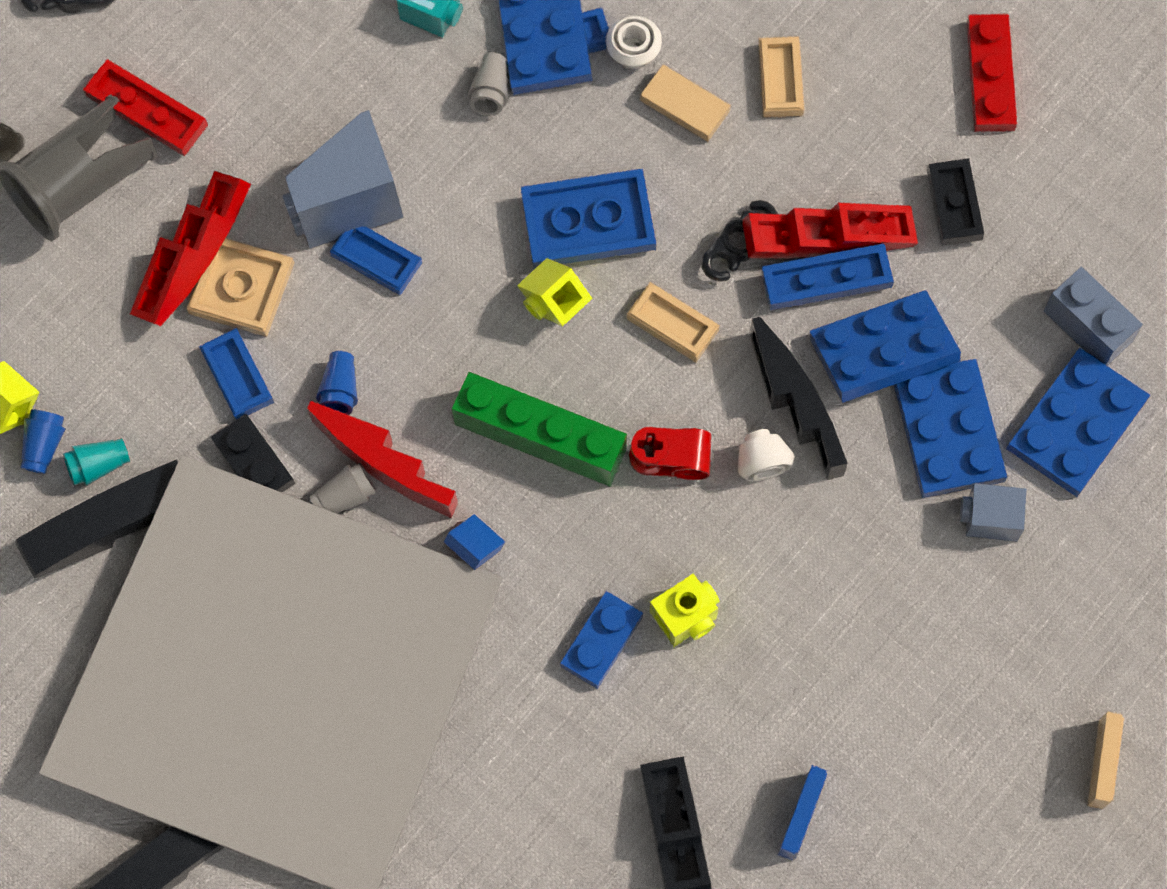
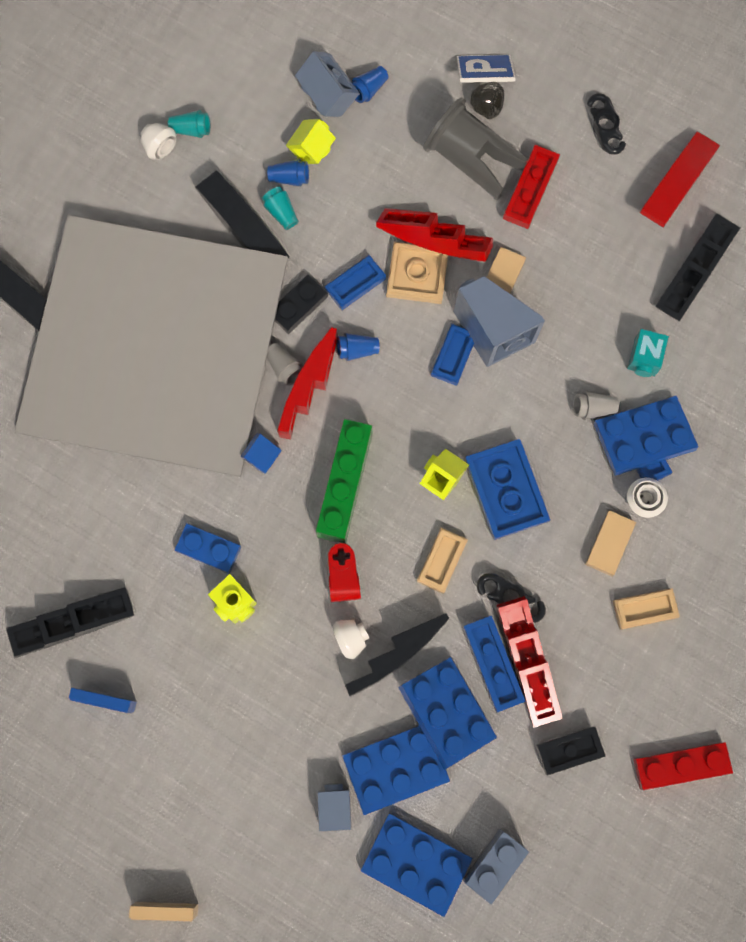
camera: 80 degrees right, 5 degrees up
(264, 167) = (506, 269): none -> tan tile

